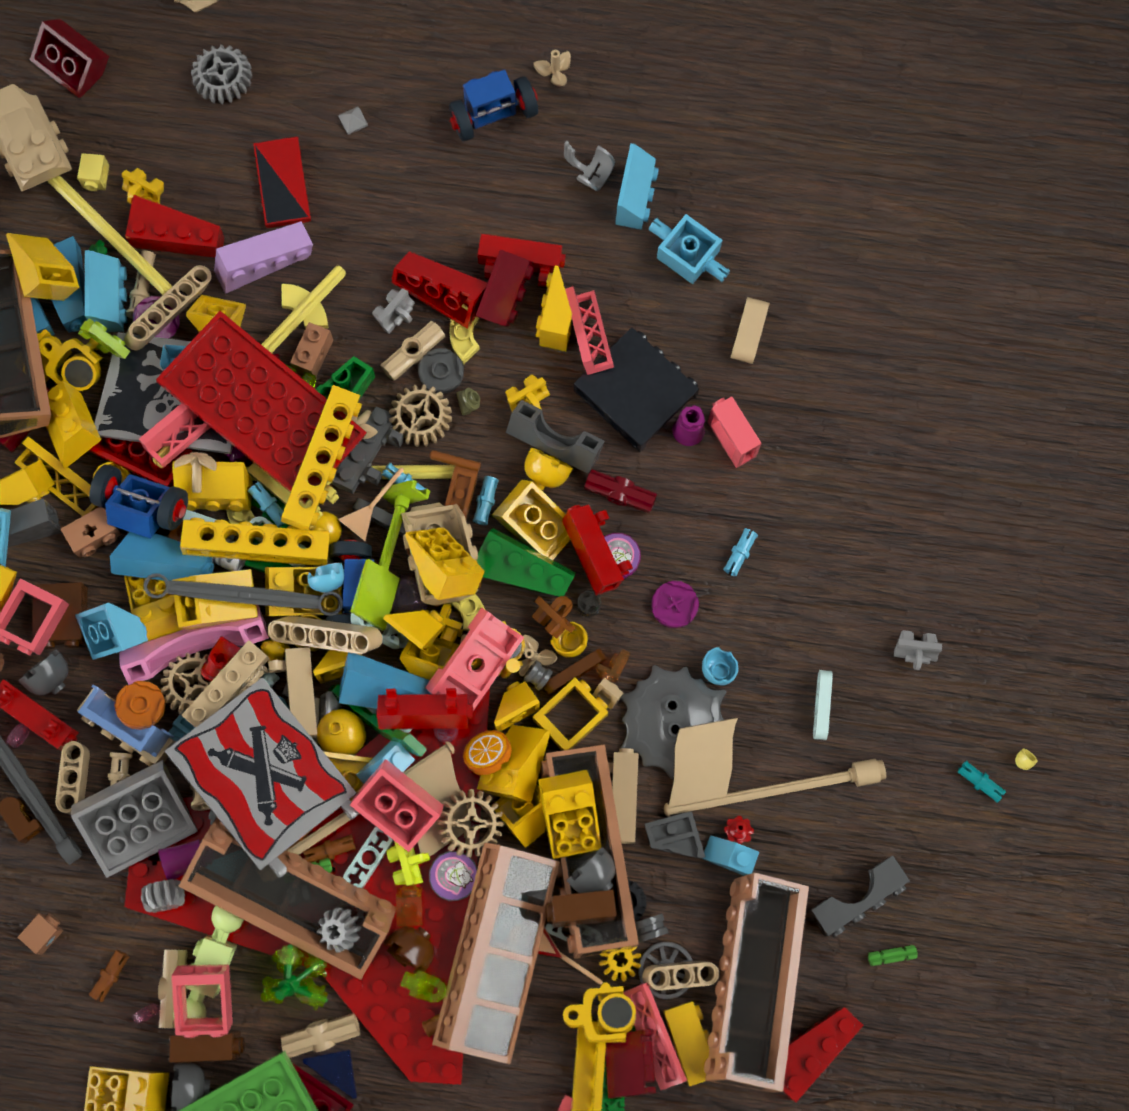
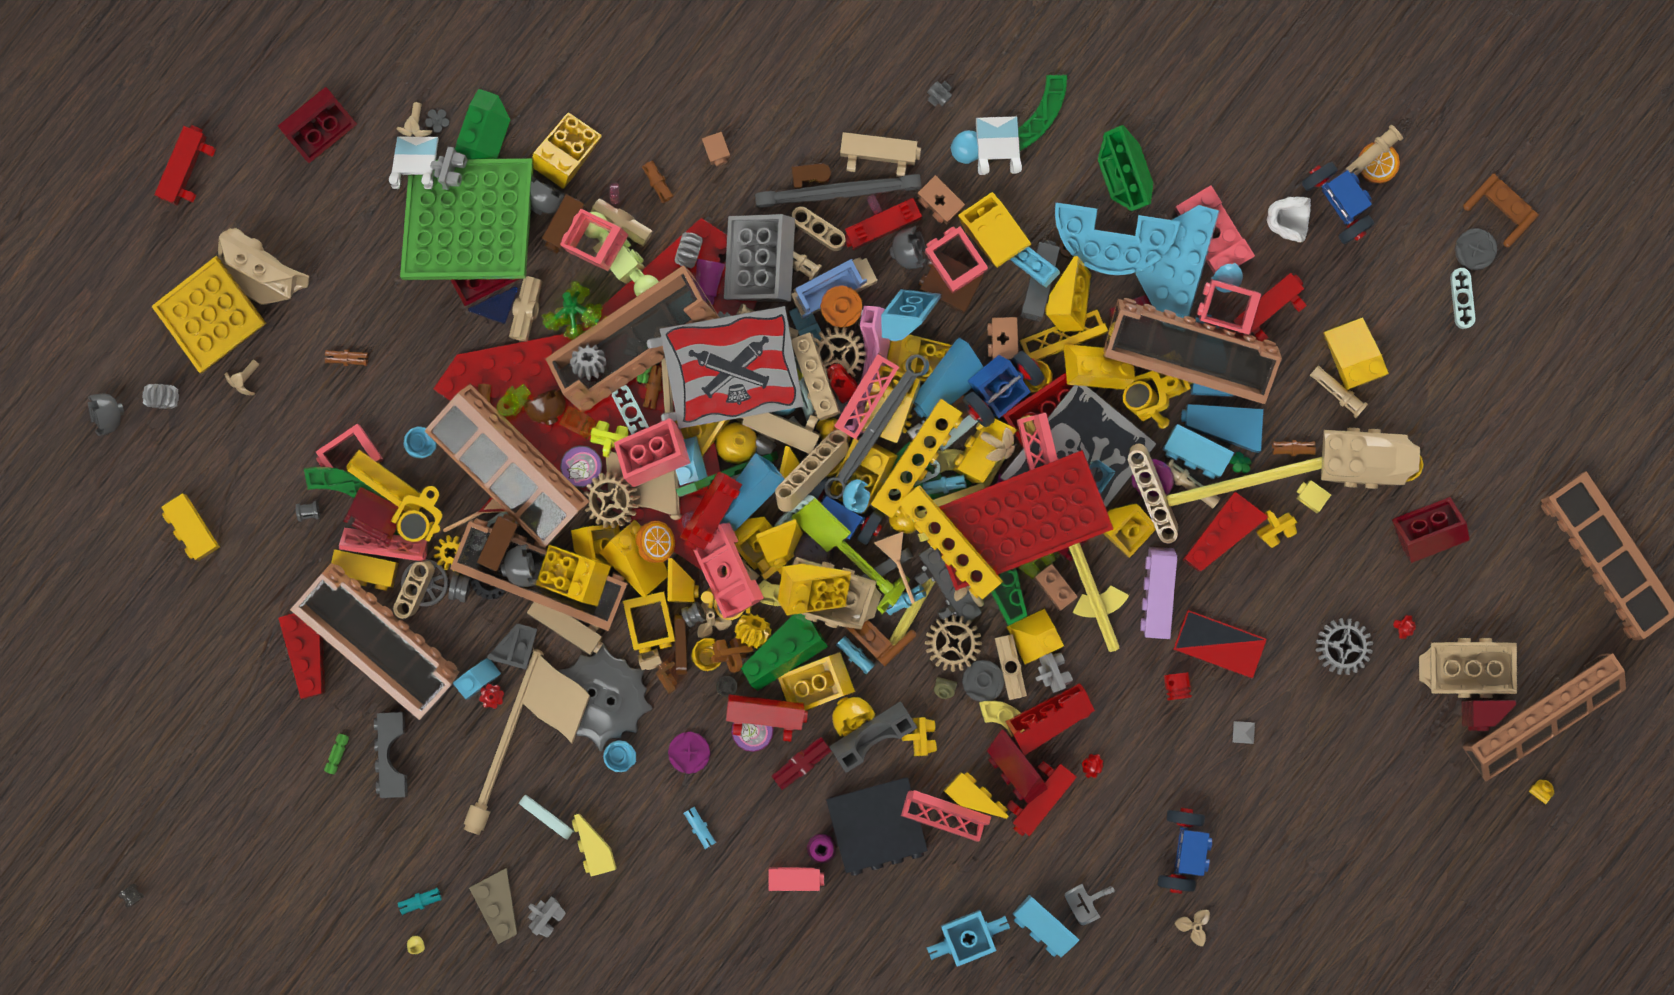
camera: 125 degrees right, 10 degrees up
(42, 268) = (1239, 412): yellow slope -> none
(56, 214) = (1293, 447): none -> dark orange pin
(106, 341) = (1150, 430): lime plate -> none
(173, 33) = (1405, 627): none -> red plant
(217, 633) = (852, 404): none -> coral fence
(346, 190) = (1177, 686): none -> red piece
(370, 342) = (1035, 636): none -> yellow slope
(462, 229) = (1092, 766): none -> red plant
(519, 607) = (752, 630): none -> yellow gear
(526, 1063) = (419, 443): none -> medium azure hair
(750, 330) = (873, 946): tan beam -> none
(824, 635) = (597, 852): none -> light yellow slope
(936, 704) = (496, 905): none -> dark tan wing

